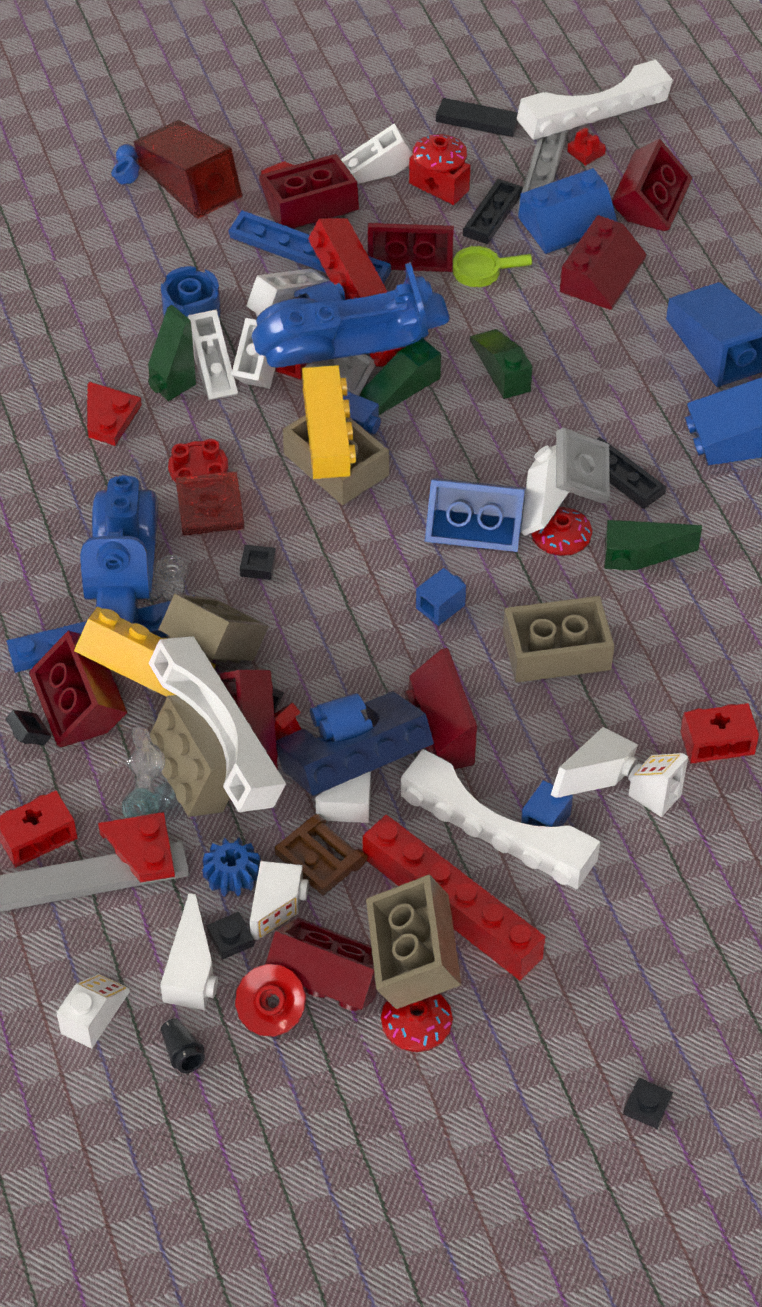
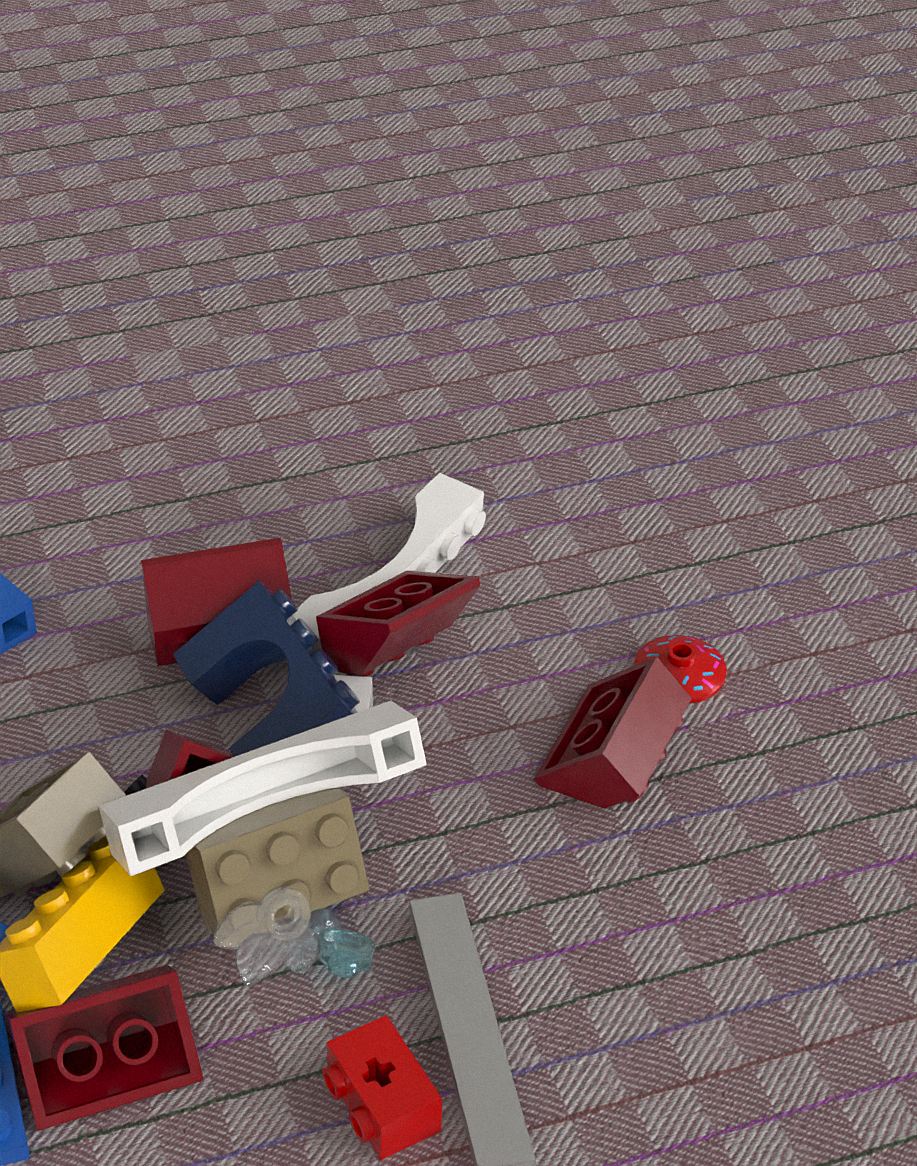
camera: 90 degrees left, 10 degrees down
(28, 727) = (174, 1112): black plate -> none
(90, 1008) = (708, 996): white slope -> none
(142, 845) = (424, 940): red wing -> none
(182, 1047) = (758, 892): black cone -> none
(189, 969) = (617, 882): white slope -> none
(230, 935) = (567, 849): black plate -> none
(231, 866) = (460, 839): blue gear -> none
(255, 992) = (681, 792): red dish -> none
(276, 896) = (514, 792): white slope -> none
(317, 863) = (450, 752): reddish brown plate -> none
(341, 719) = (236, 691): blue brick -> none
(413, 942) = (608, 620): dark tan brick -> none
(421, 806) = (392, 619): none -> dark red slope
(473, 910) = (506, 617): red brick -> none
(546, 809) = (377, 528): blue brick -> none
(558, 639) = (106, 499): dark tan brick -> none
(596, 764) = (318, 472): white slope -> none
(648, 1103) = (775, 480): black plate -> none
(658, 781) = (346, 423): white slope -> none
(719, 733) = (268, 385): red brick -> none

